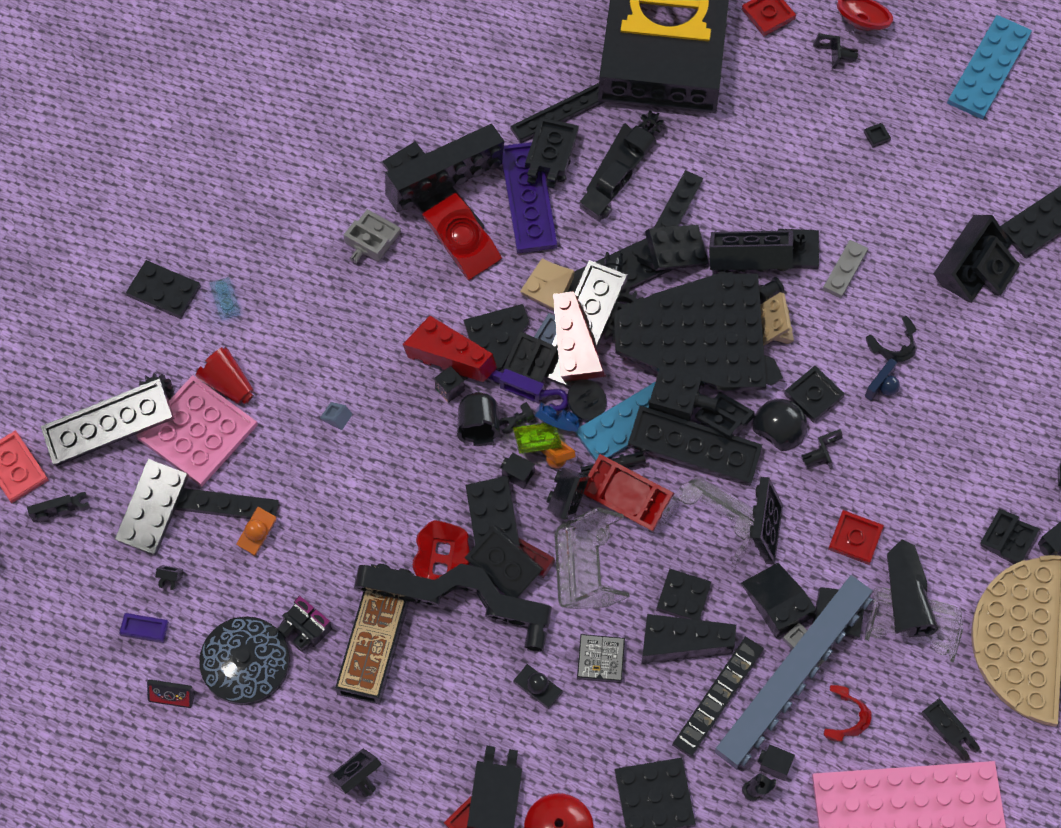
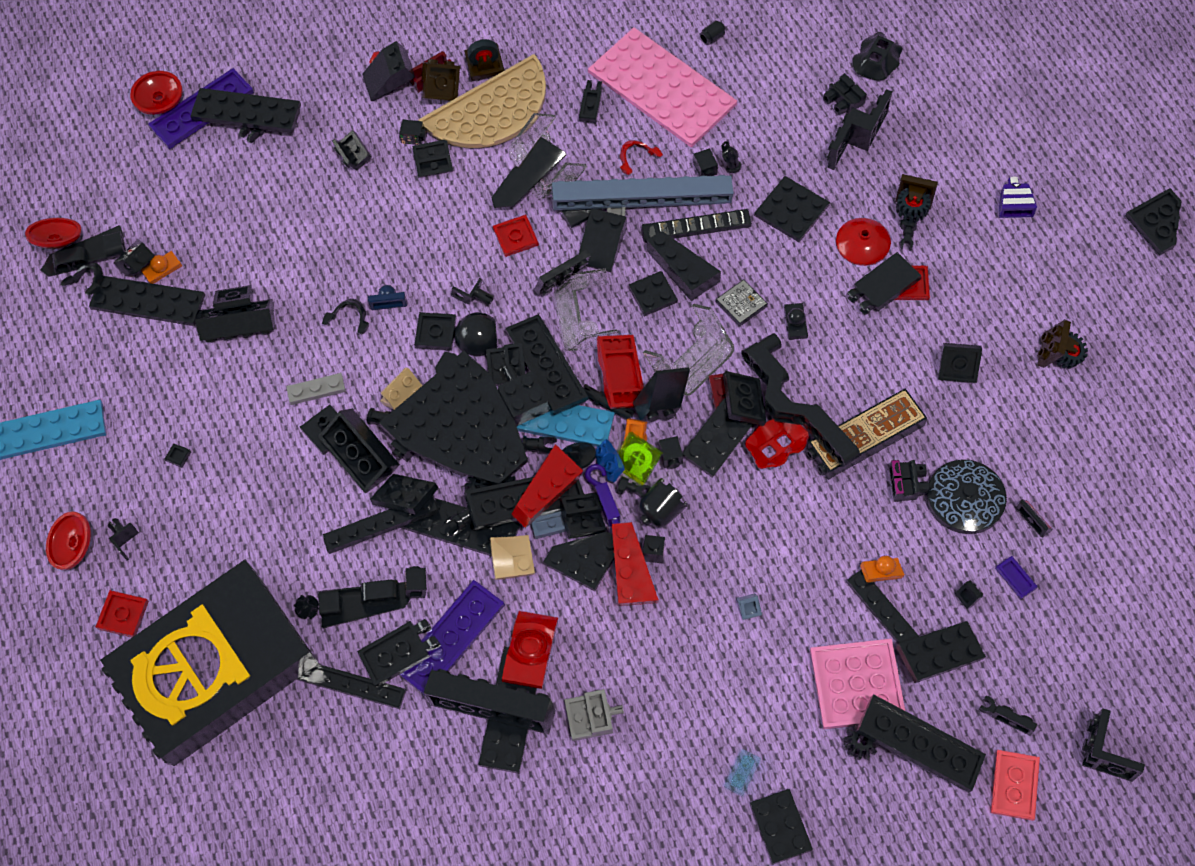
camera: 130 degrees left, 0 degrees up
(226, 376) = (802, 702): red cone -> none
(628, 380) = (538, 444): none -> black piece

